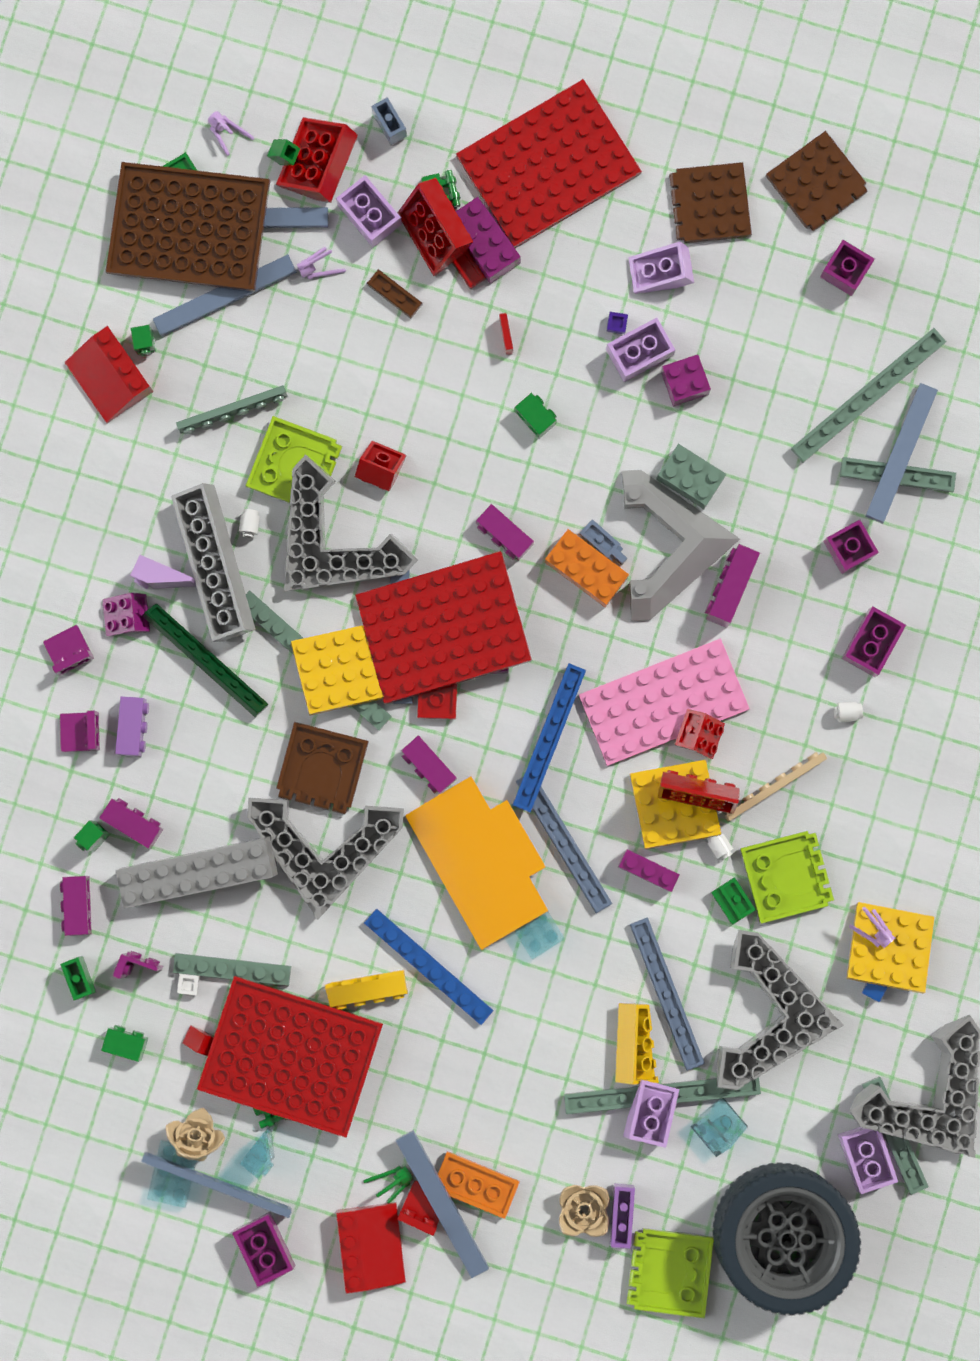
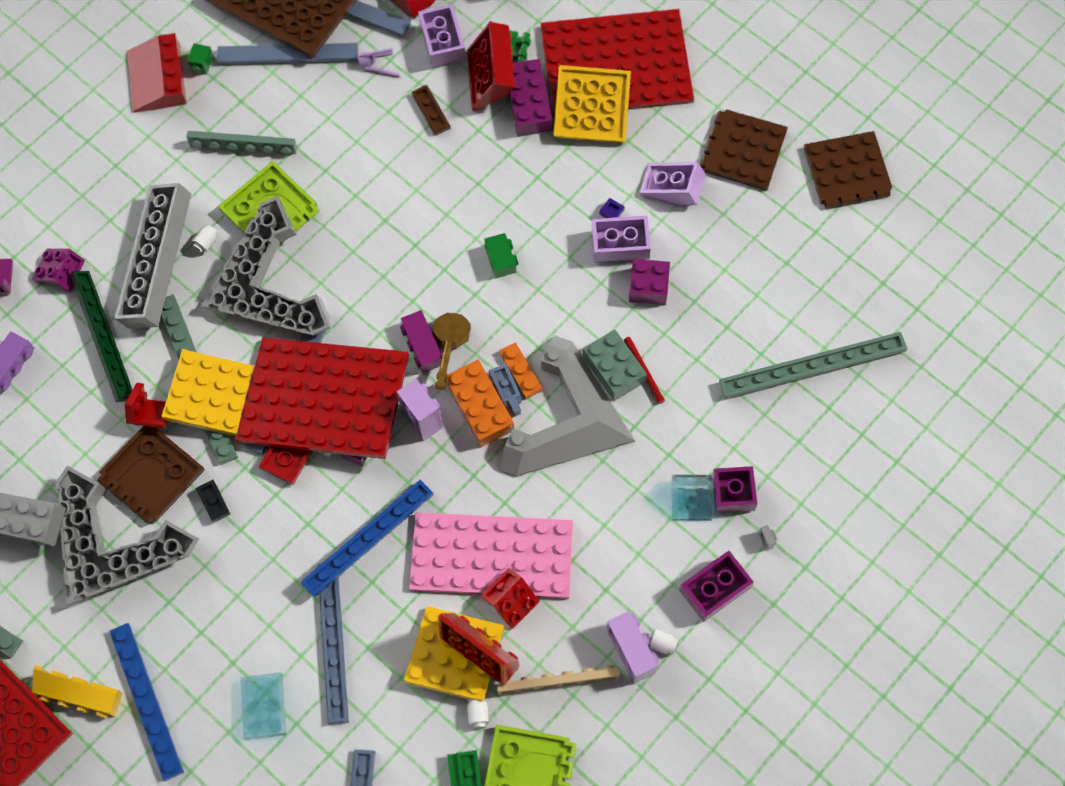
camera: 25 degrees right, 15 degrees down
(156, 575) = (98, 244): lavender slope -> none
(289, 713) = (142, 410): none -> red bracket
(380, 466) = (342, 239): red slope -> none
(392, 767) = (213, 501): none -> black plate
(428, 765) = (245, 513): magenta brick -> none
(468, 270) = (504, 115): red tile -> none
(481, 860) = (246, 623): light orange slope -> none
(506, 333) = (509, 179): red tile -> none
(527, 510) = (451, 332): none -> pearl gold piece
(540, 600) = (420, 409): none -> lavender brick
(549, 222) = (592, 104): none -> yellow plate
(607, 519) = (520, 370): none -> orange plate
(648, 870) = (397, 705): magenta brick -> none
(730, 477) = (649, 379): none -> red bar
(733, 584) = (604, 474): magenta brick -> none
(815, 569) = (692, 497): none -> clear light blue slope
(827, 729) = (632, 646): none -> lavender brick
(847, 267) = (841, 247): magenta brick -> none
(898, 576) = (768, 537): none -> light grey plate
(901, 453) = (820, 427): sand blue tile -> none
(912, 476) = (809, 446): sand green plate -> none

